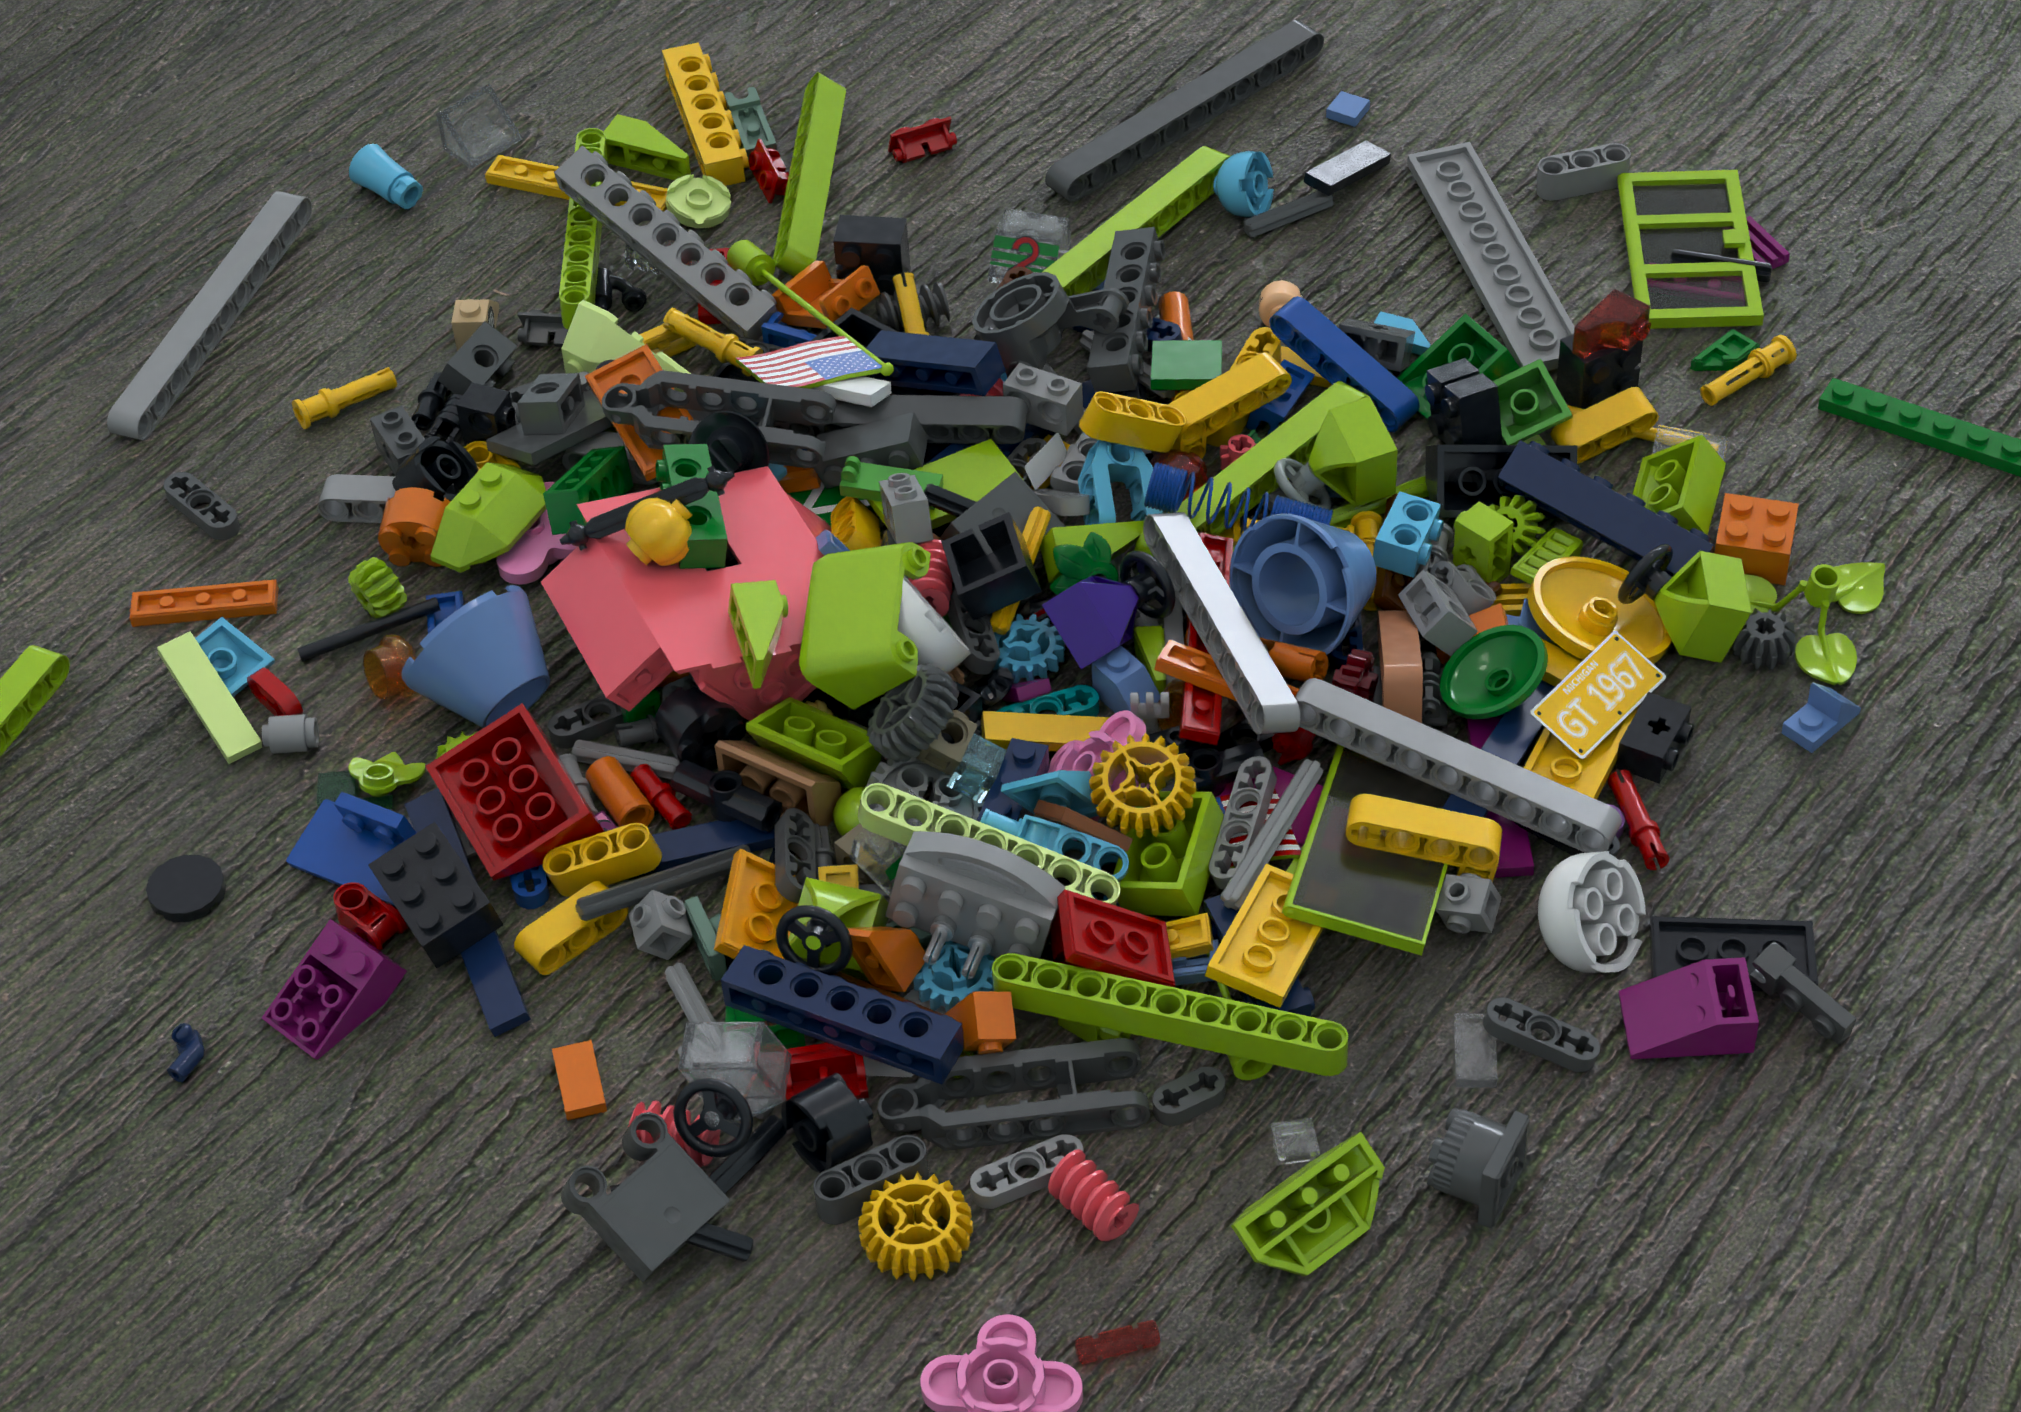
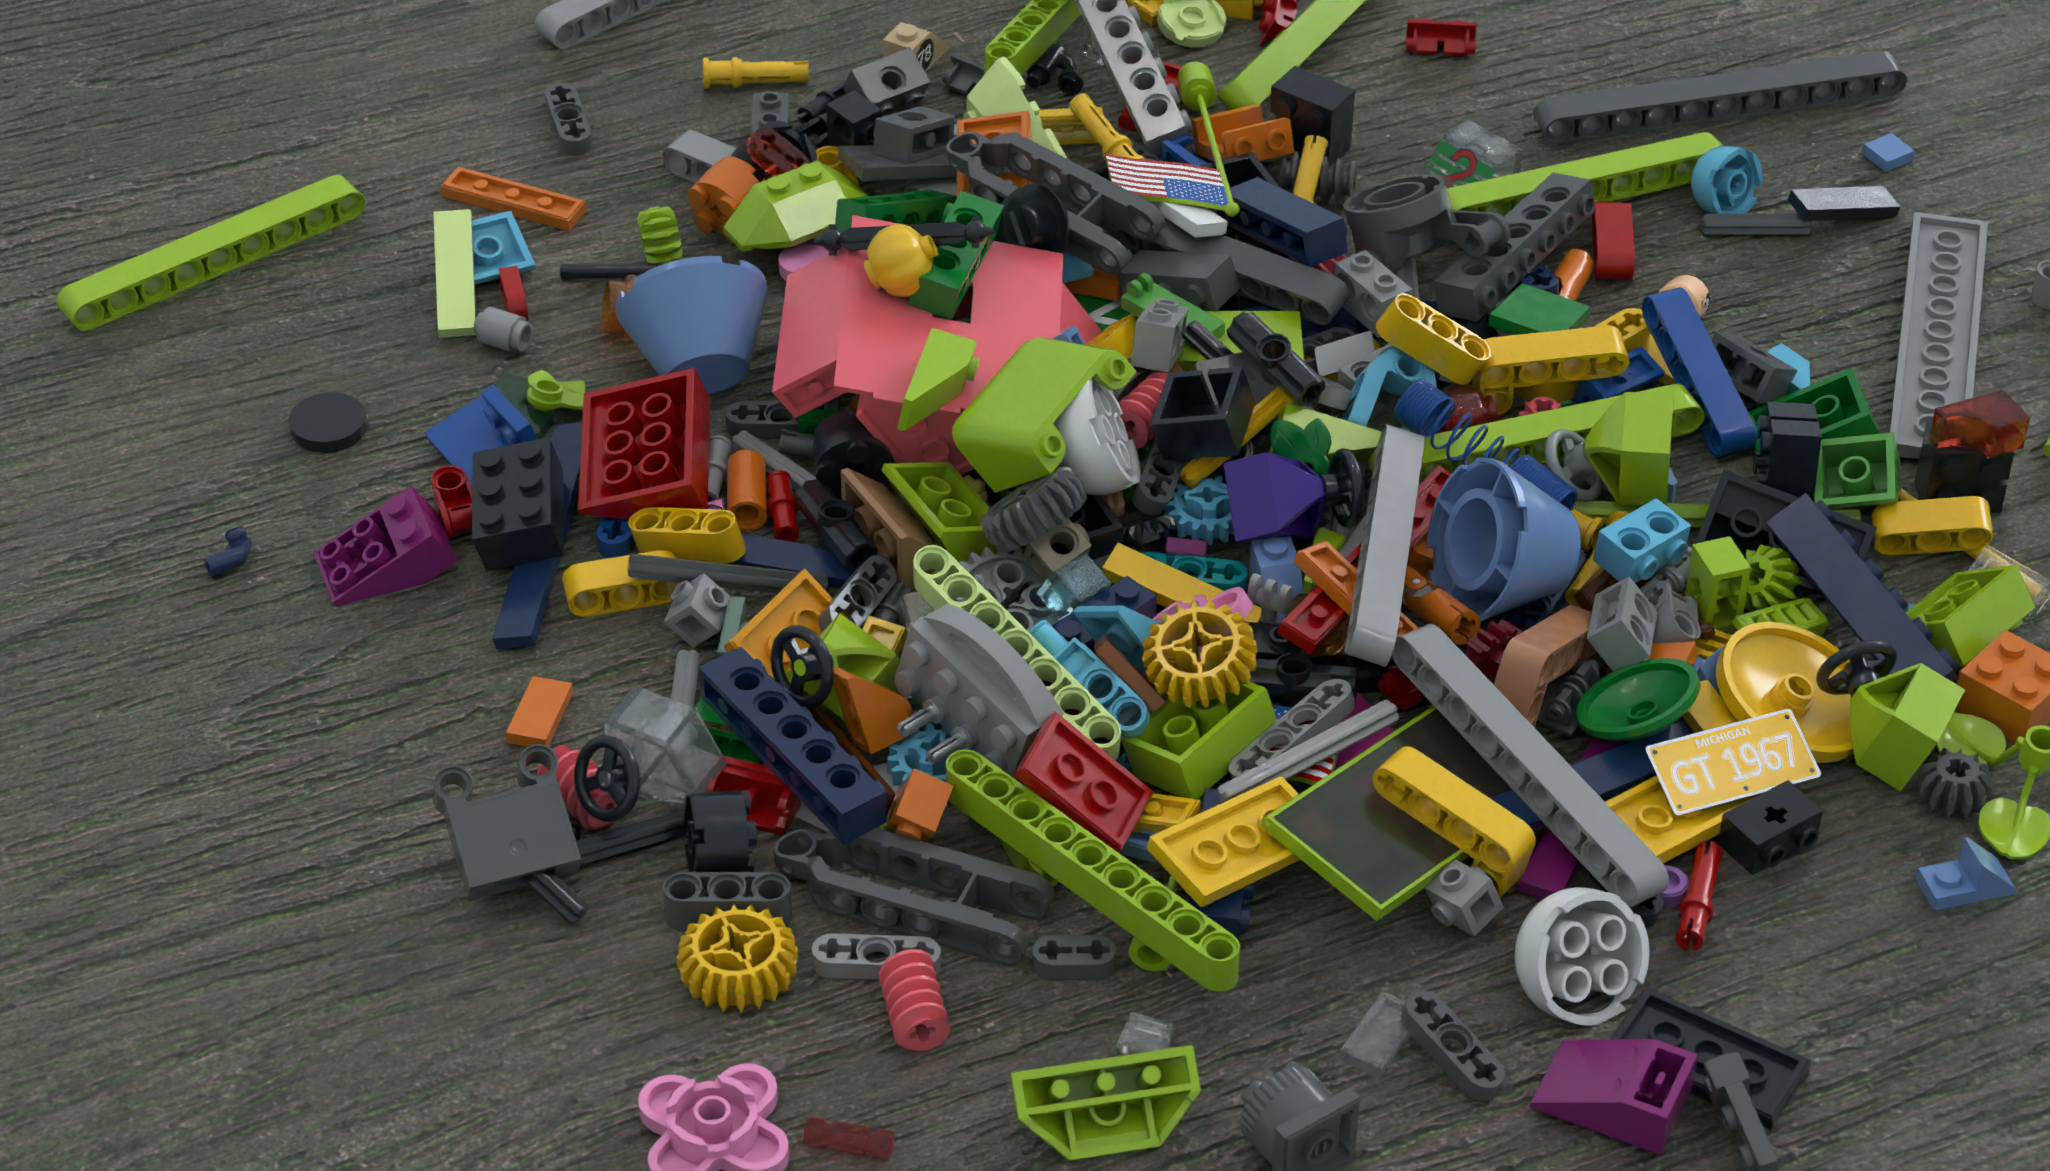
camera: 25 degrees right, 5 degrees down
(445, 470) = (779, 153): none -> clear red beam
(1004, 484) = (1276, 359): none -> black piece
(1190, 273) = (1613, 241): none -> red beam

